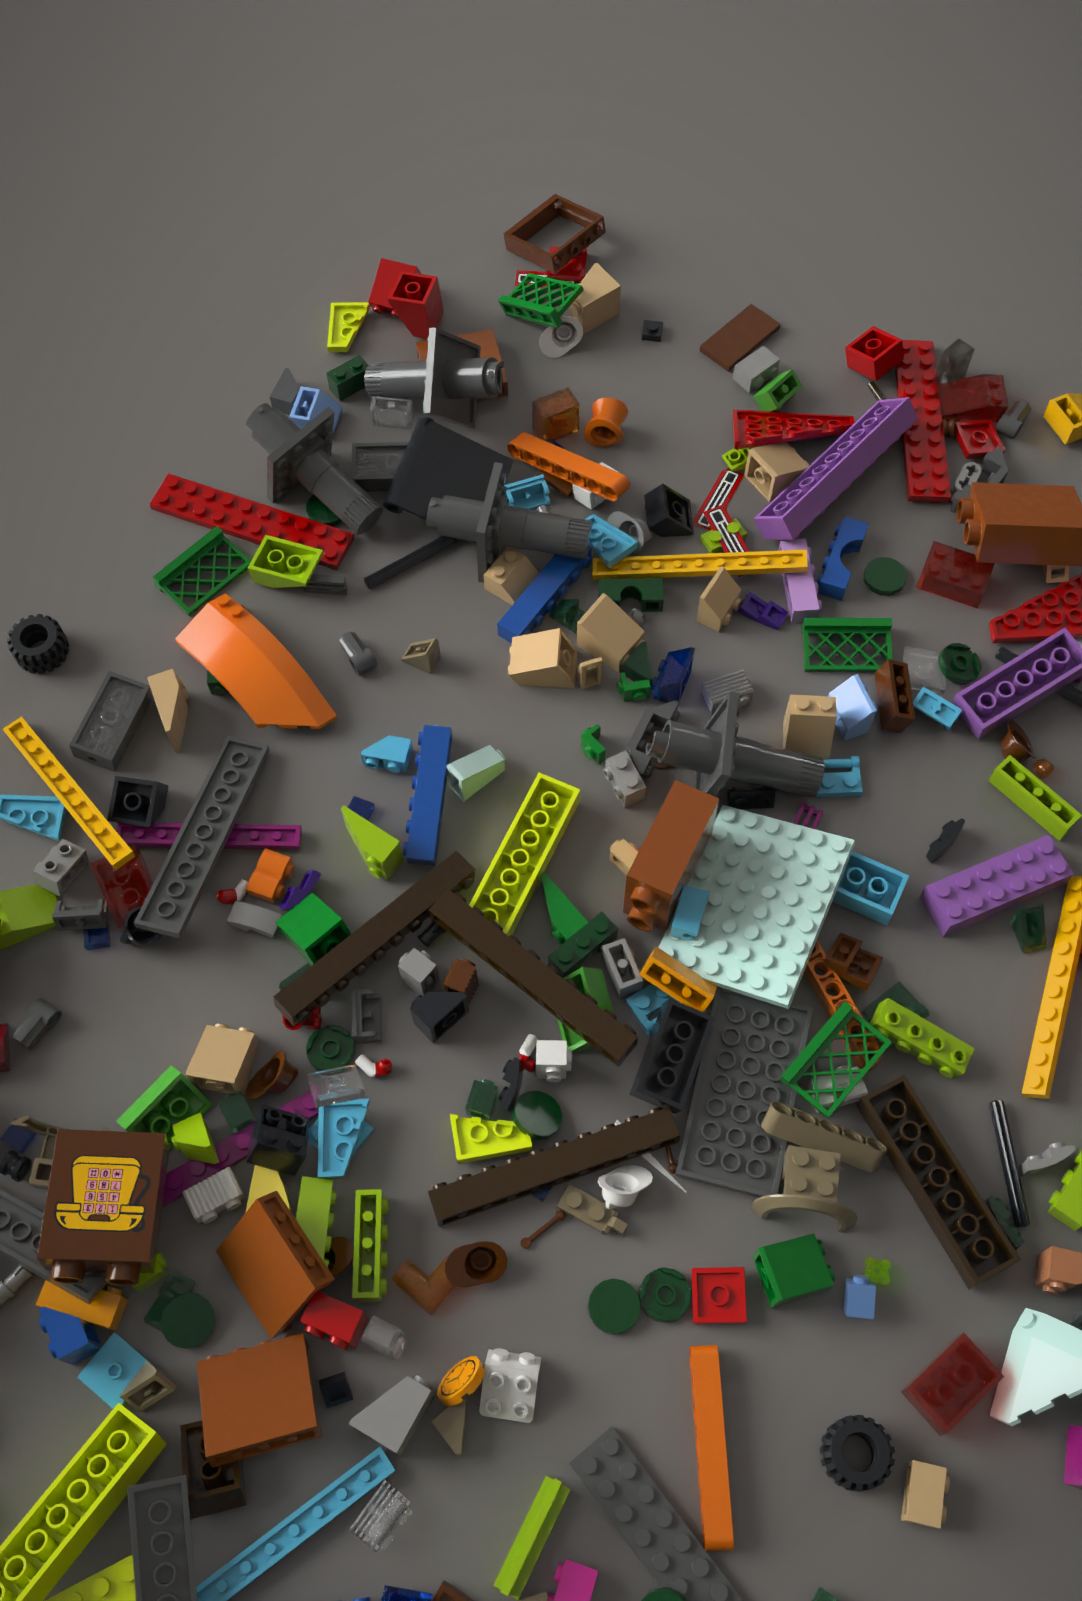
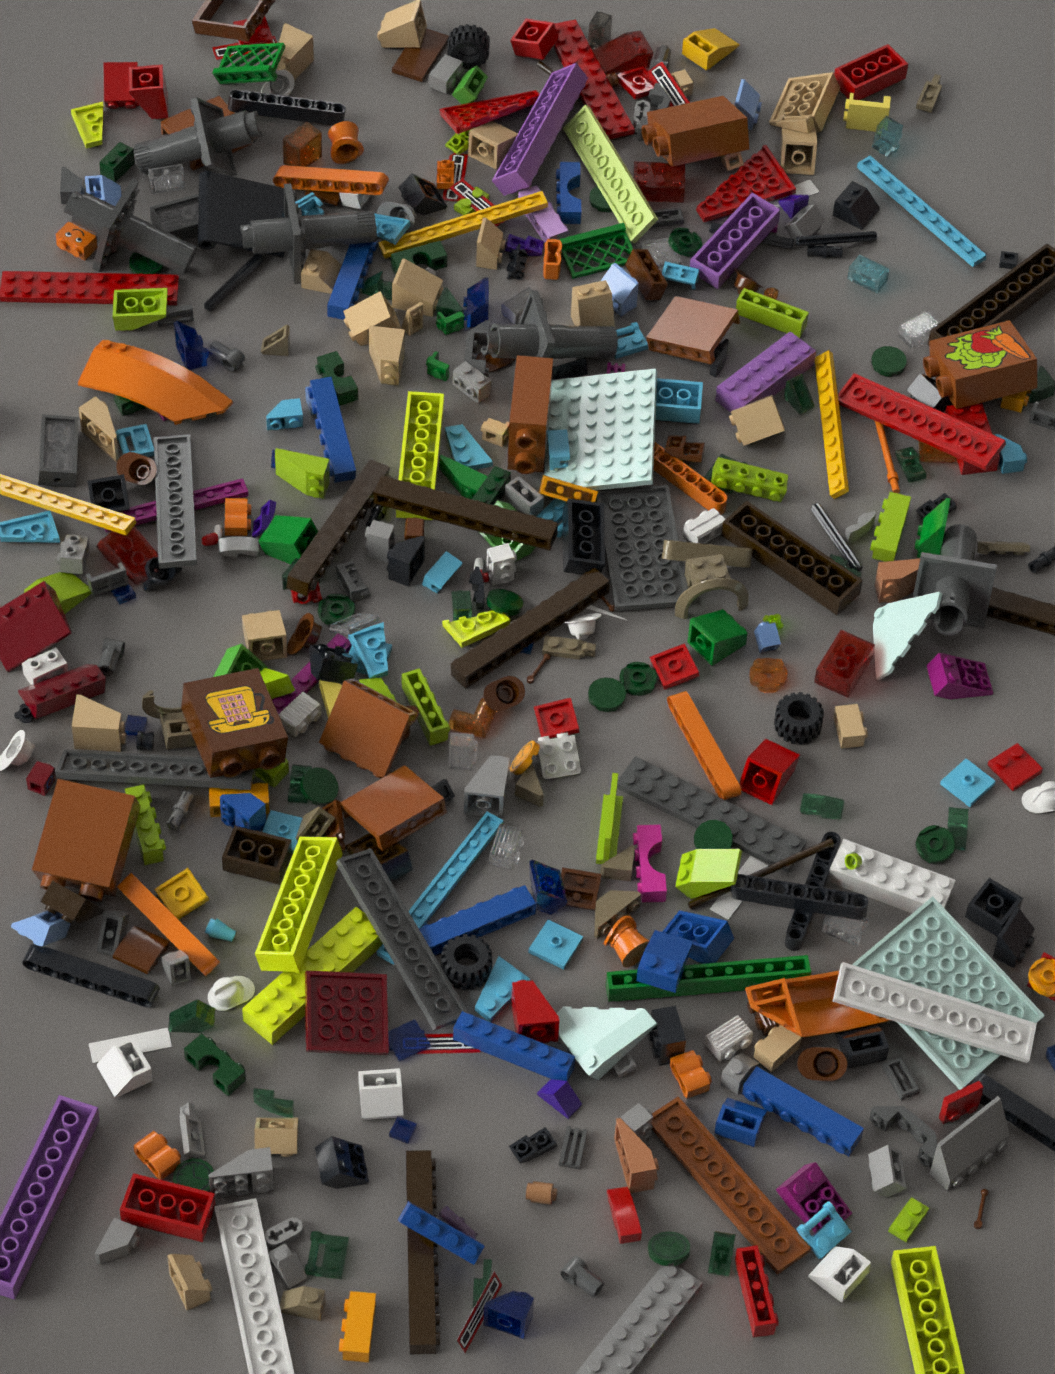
camera: 25 degrees left, 10 degrees down
(58, 1405) = (256, 854): none -> dark brown brick
(175, 1403) = (336, 828): none -> reddish brown hinge
(184, 774) = (136, 468): none -> reddish brown piece
(194, 555) = (59, 322): green fence -> none
(211, 736) = (140, 439): none -> medium azure plate
(236, 1111) = (290, 662): clear green brick -> none
(255, 457) = (76, 241): none -> orange brick
(320, 629) = (190, 346): none -> clear blue slope
(334, 1320) = (423, 750): red brick -> none
(375, 1069) = (379, 610): arm -> none
(468, 706) = (333, 366): none -> dark green arch
(475, 771) = (357, 407): light aqua slope -> none
(478, 1041) = (441, 572): none -> medium azure hinge
(532, 1324) = (556, 718): none -> red plate
(540, 710) = (387, 352): none -> tan slope
(559, 362) = (286, 107): none -> black beam
(581, 869) = (466, 449): none -> medium azure wing
(652, 330) = (347, 66): black plate -> none
(707, 493) = (445, 174): none -> orange slope
(731, 300) = (403, 27): none -> tan slope
(749, 625) = (517, 263): none -> black hinge
(785, 1528) = (768, 771): none -> red slope
(787, 641) = (552, 259): none -> orange brick
(794, 342) = (469, 45): none -> black tyre
(819, 1044) = (683, 496): green fence -> none
(828, 1362) = (772, 666): none -> clear orange plate
(900, 550) = (610, 173): none -> yellowish green plate
(924, 791) = (691, 329): none -> panel
(947, 625) = (667, 220): none -> dark grey tile
(962, 953) = (757, 420): none -> tan slope
(1008, 439) = (661, 75): none -> sticker
(1029, 454) = (683, 81): none -> tan brick

